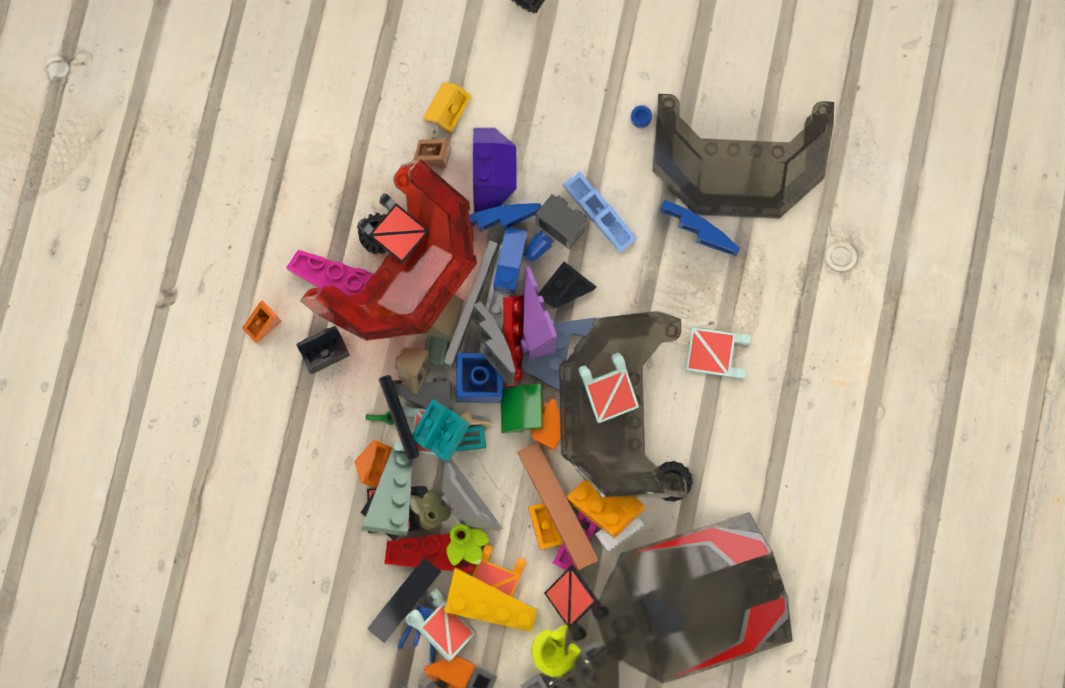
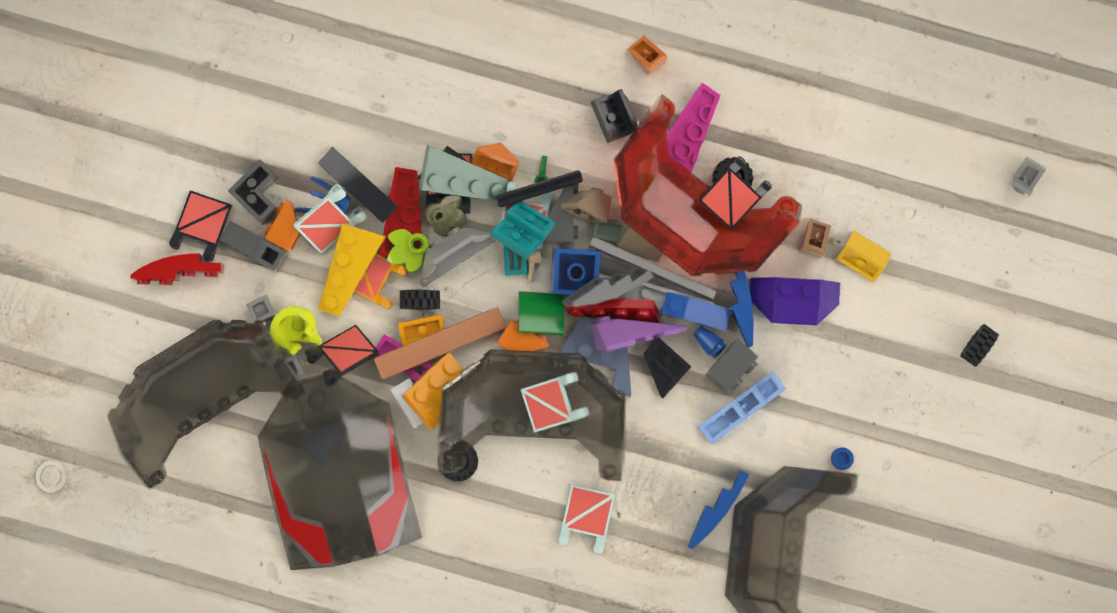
camera: 90 degrees right, 5 degrees up
(516, 529) = (420, 299): none -> black tyre

